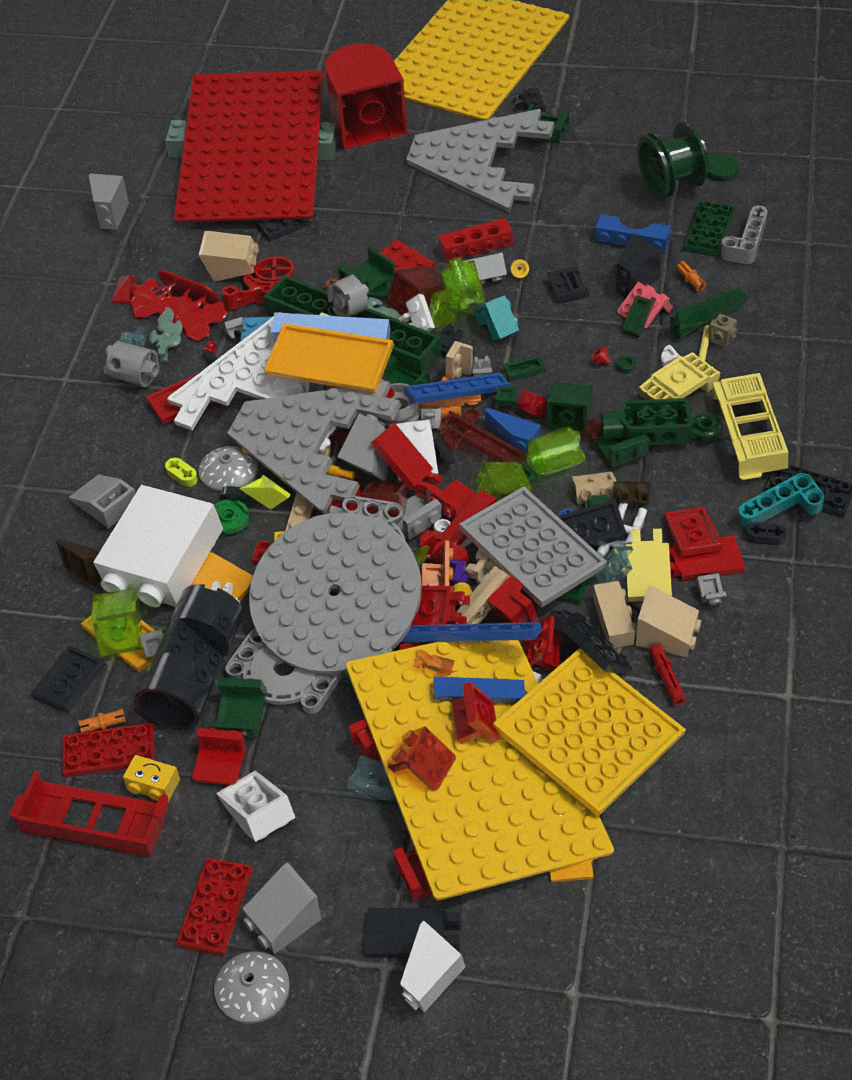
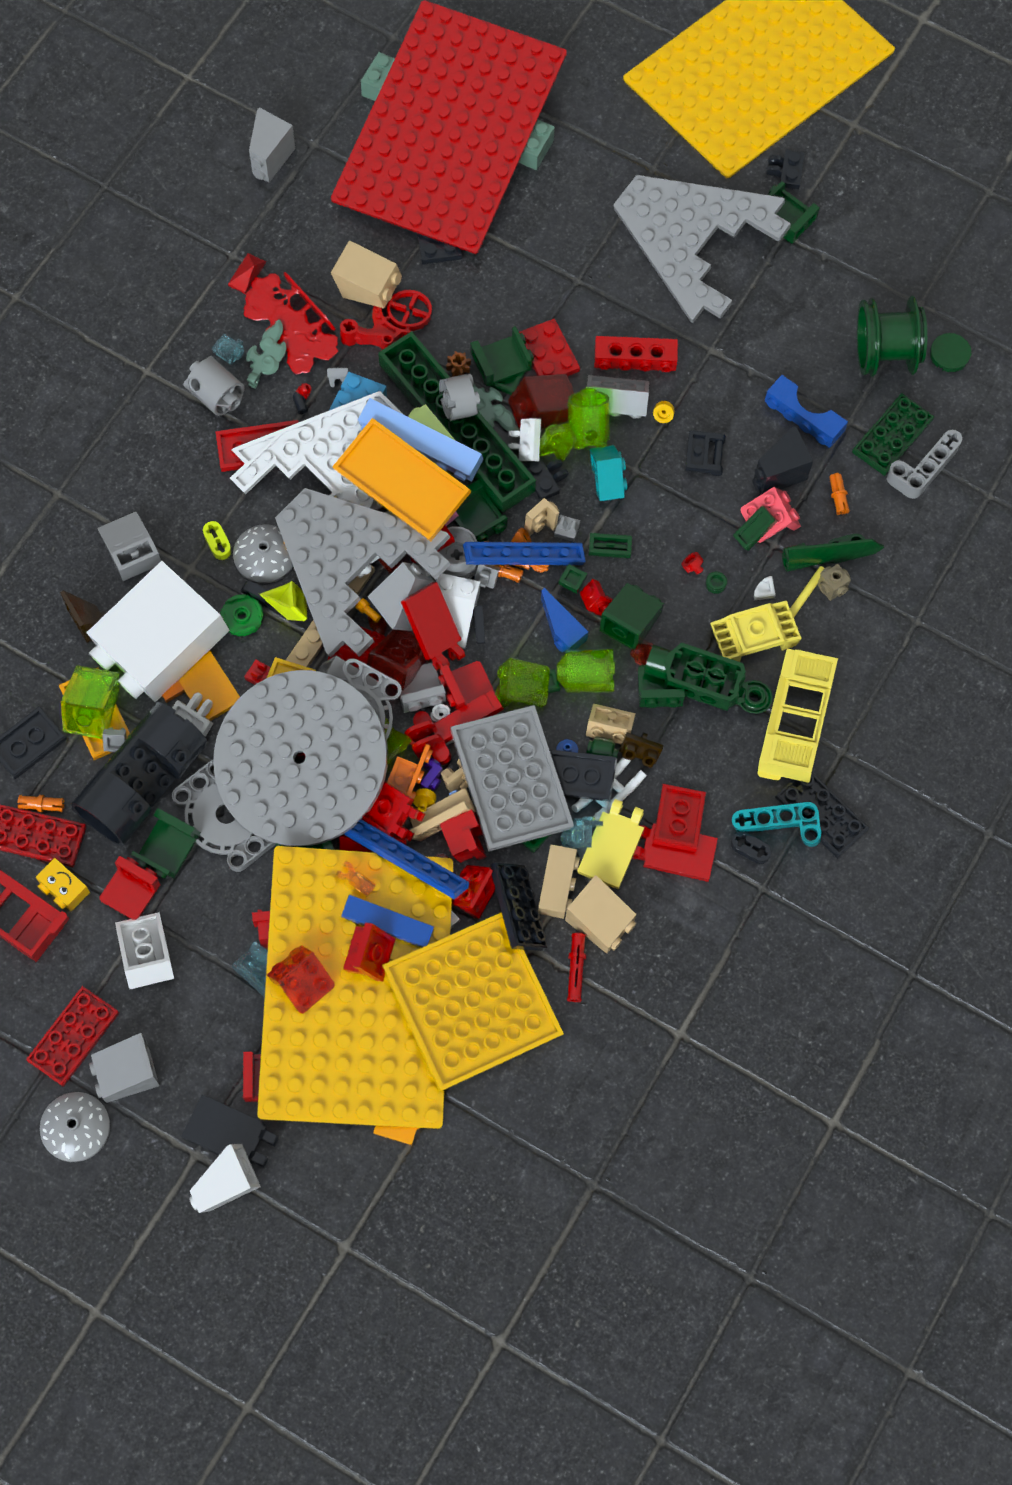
camera: 15 degrees right, 20 degrees up
(365, 95) = (597, 104): red brick -> none
(463, 428) = (521, 621): clear red piece -> none
(710, 589) = (663, 891): light grey bracket -> none

